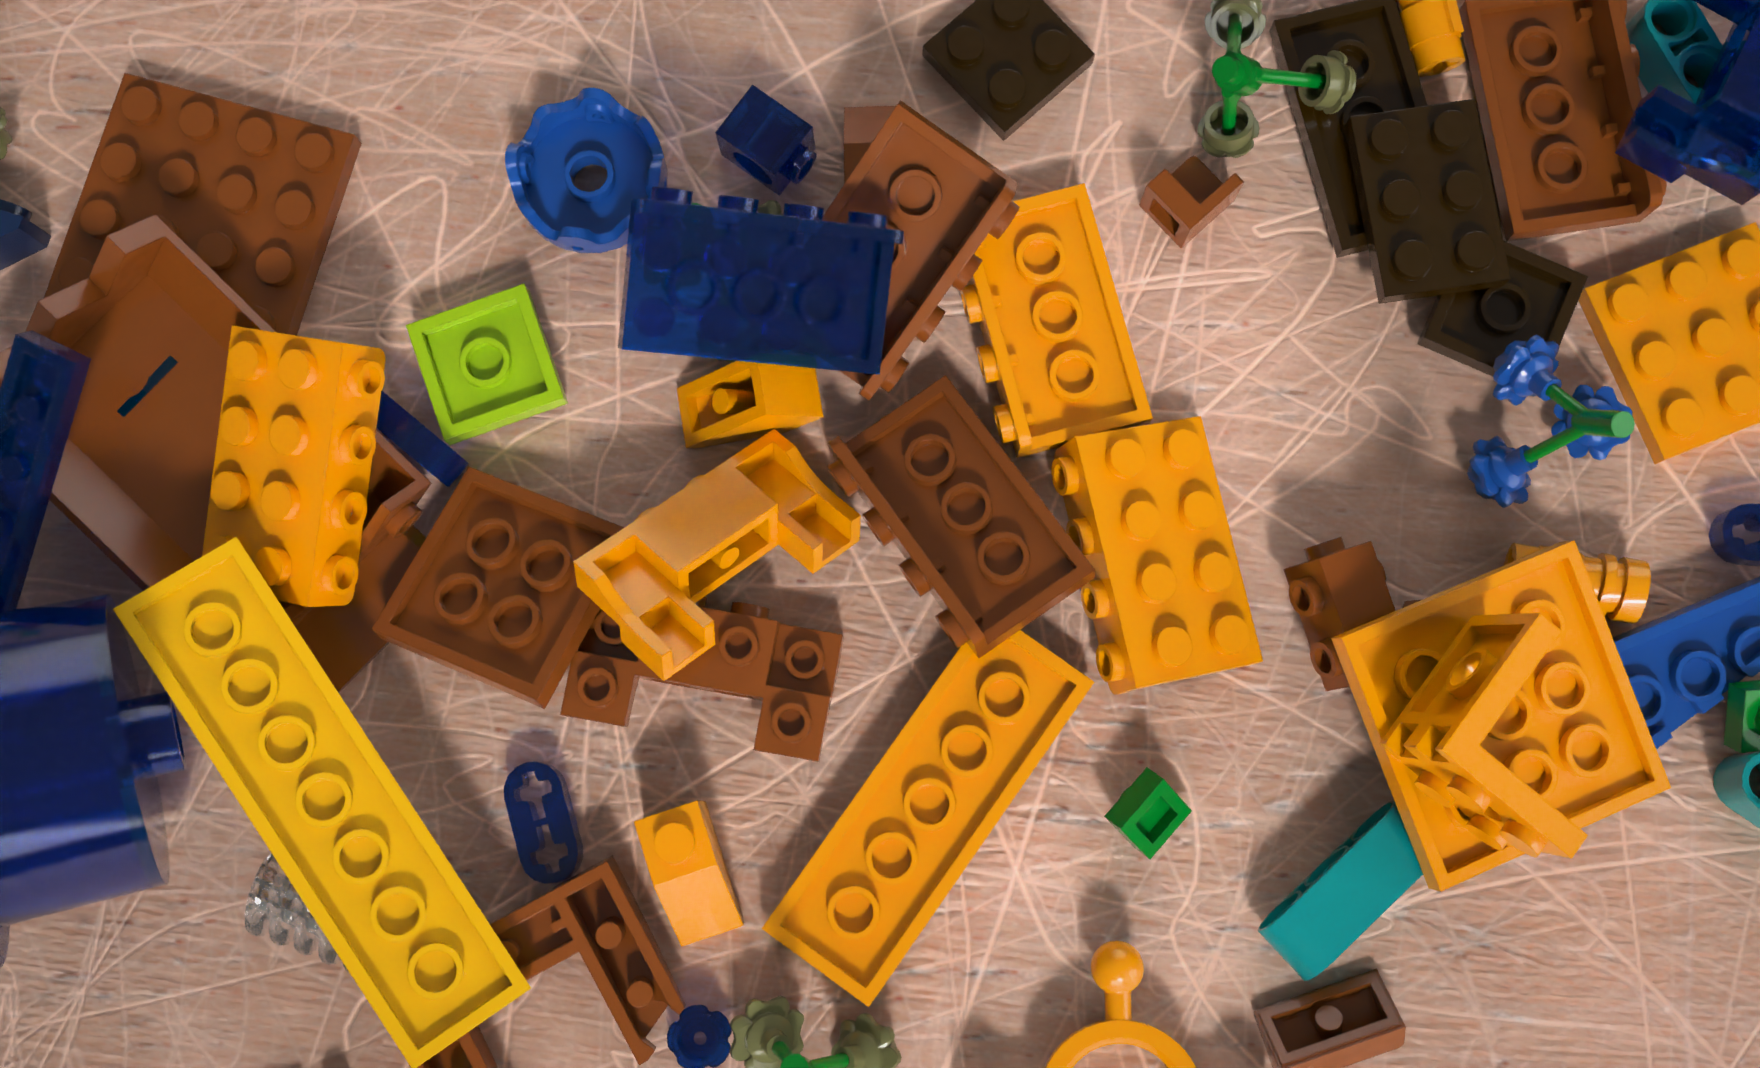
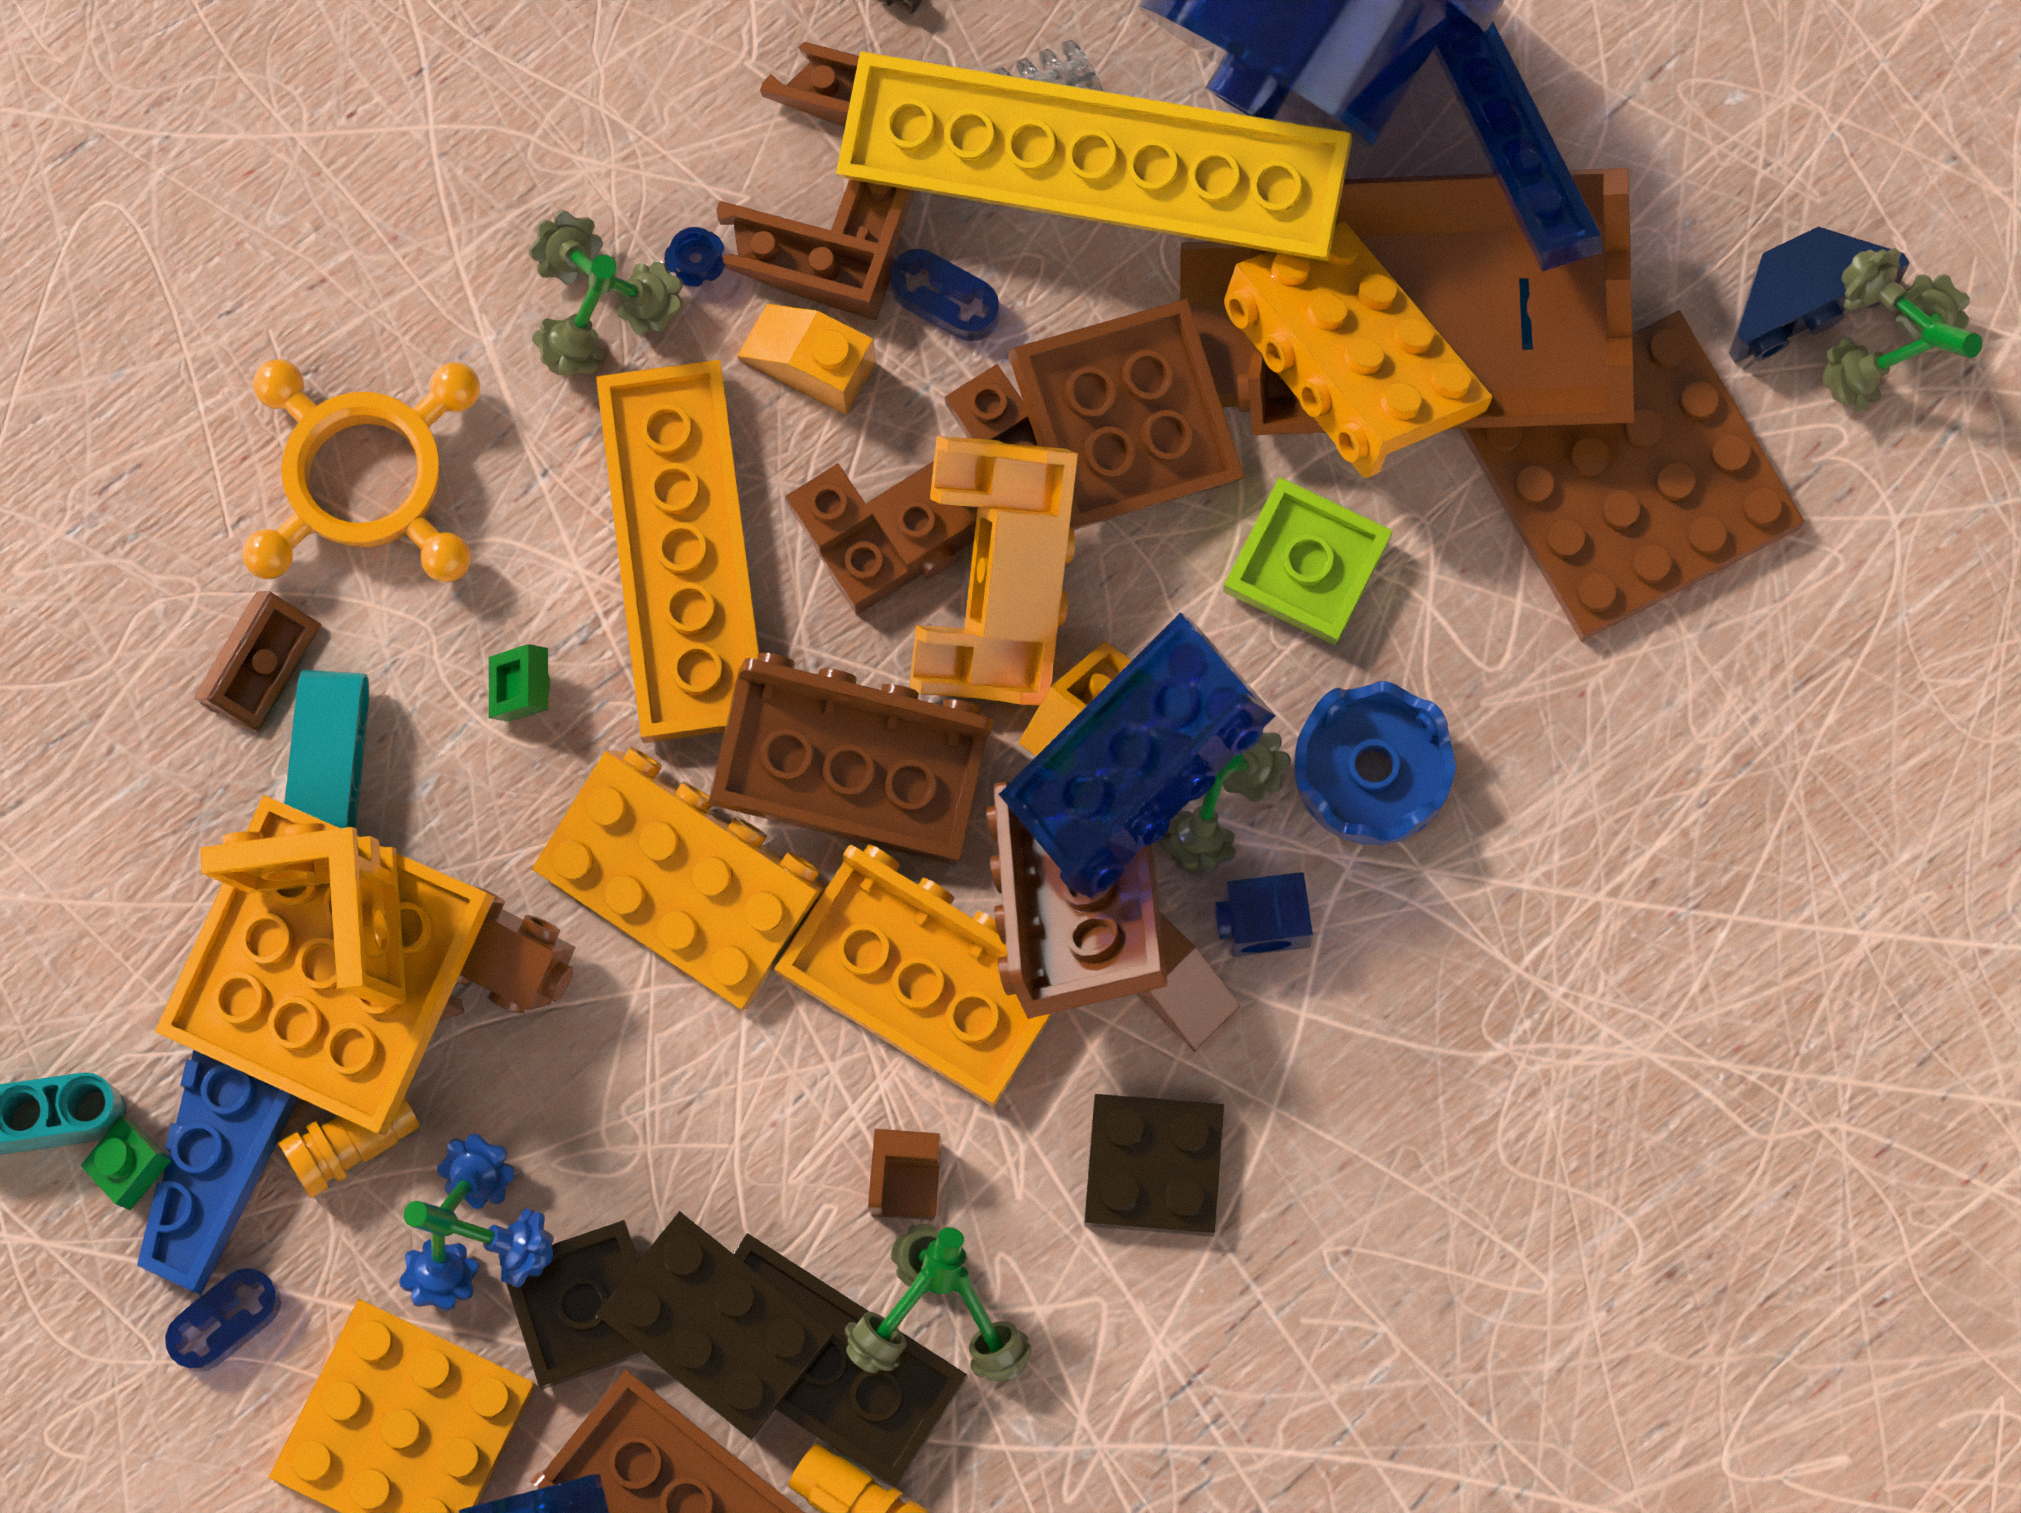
camera: 135 degrees right, 5 degrees down
(419, 441) = (1298, 461): clear blue beam -> none

